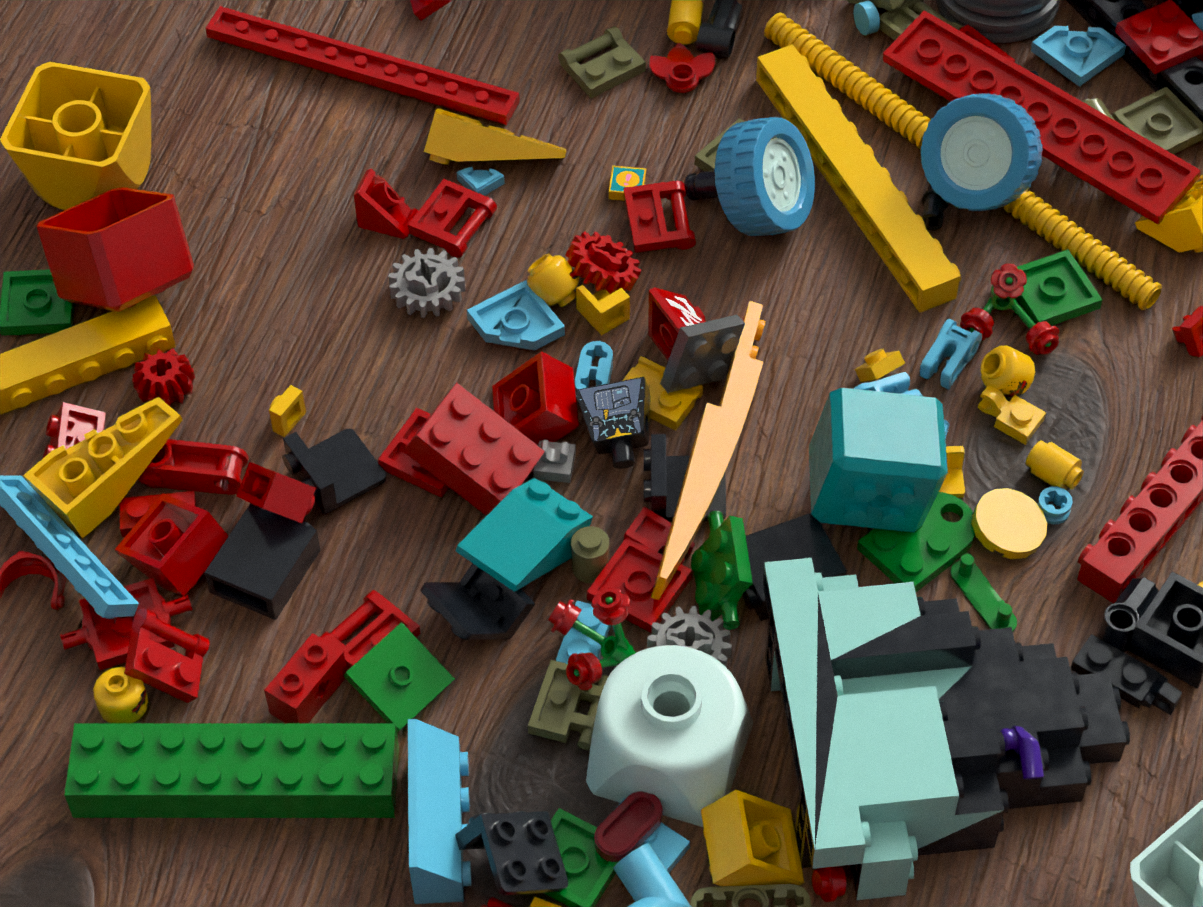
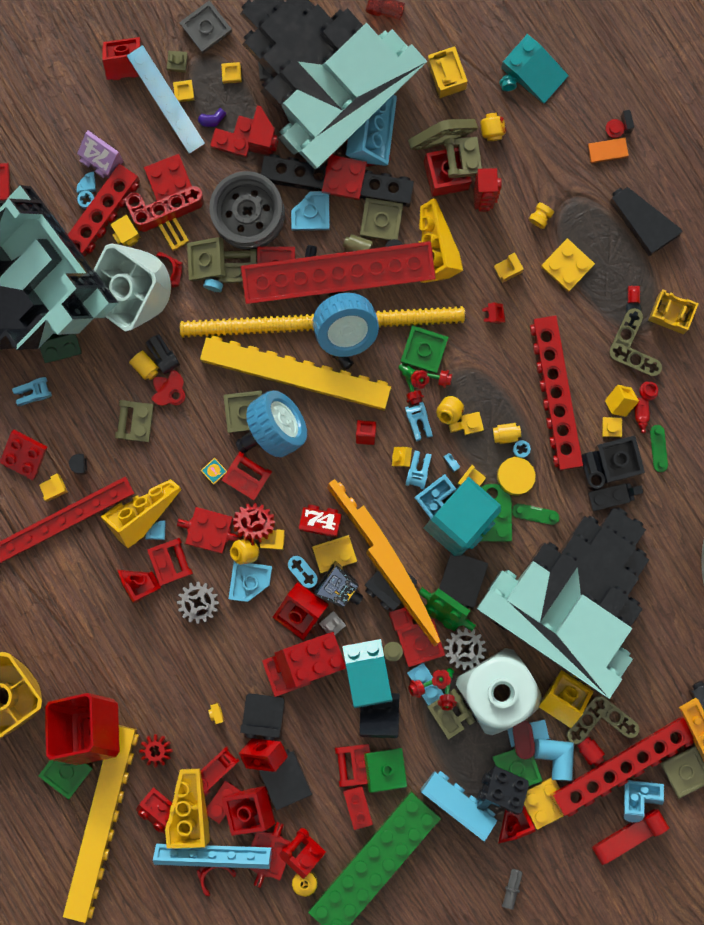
camera: 45 degrees left, 30 degrees up
(428, 42) = (53, 488): none -> yellow panel
(484, 39) = (78, 464): none -> black brick
(536, 227) = (208, 530): none -> red plate
(702, 353) = (344, 528): dark grey plate -> none
(864, 309) = (365, 432): none -> red slope
(1027, 748) = (630, 580): dark purple arm -> none

